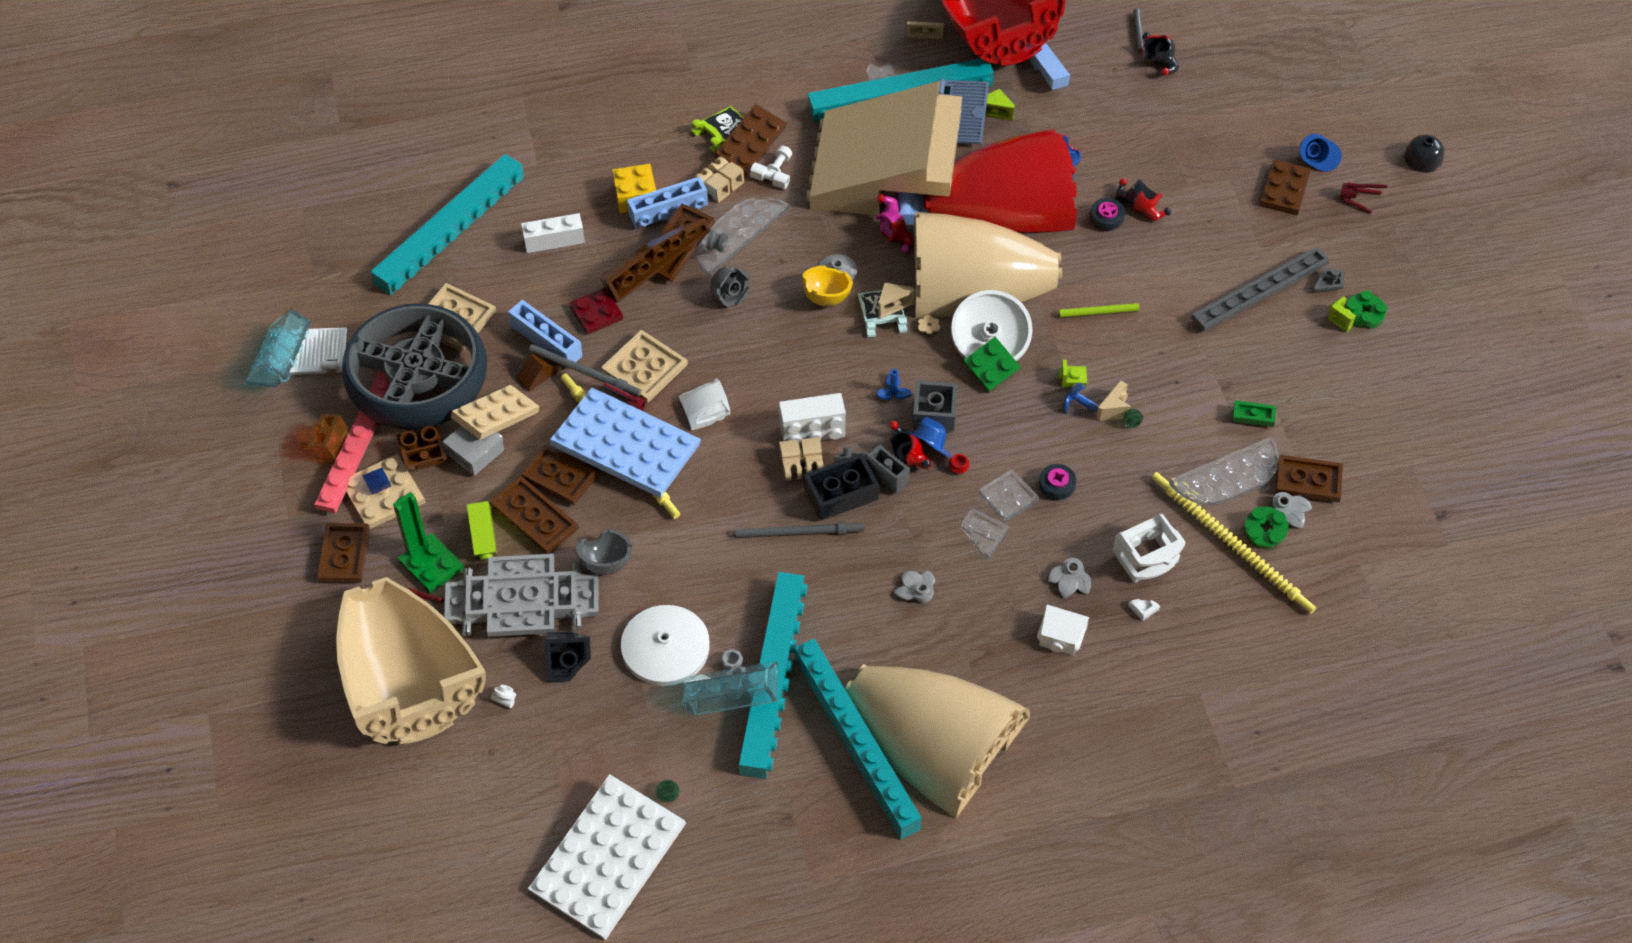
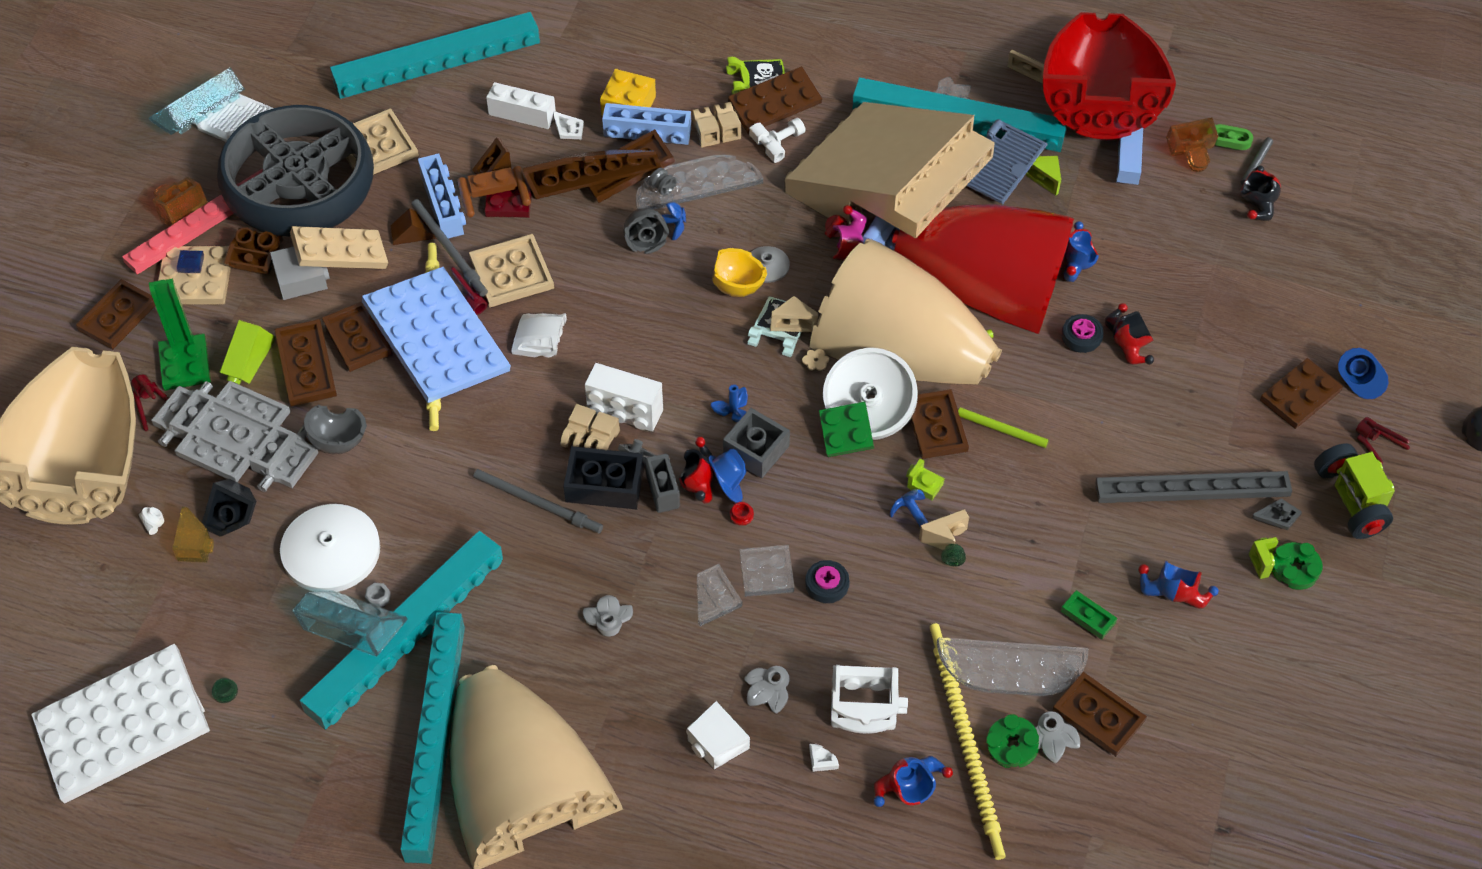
camera: 30 degrees right, 0 degrees up
(552, 692) = (192, 539): none -> clear yellow slope
(566, 288) = (495, 158): none -> reddish brown slope
(580, 304) = (492, 183): none -> dark orange plate
(602, 233) = (568, 126): none -> white piece
(745, 266) = (677, 217): none -> blue plant
(868, 216) = (834, 220): none -> red plate
(1055, 330) = (938, 425): none -> reddish brown plate
(1087, 34) = (1193, 141): none -> clear orange brick
(1109, 20) = (1233, 137): none -> bright green plate
(1218, 589) = (910, 780): none -> blue piece
(1298, 363) = (1176, 585): none -> blue piece
(1375, 234) = (1361, 487): none -> brick

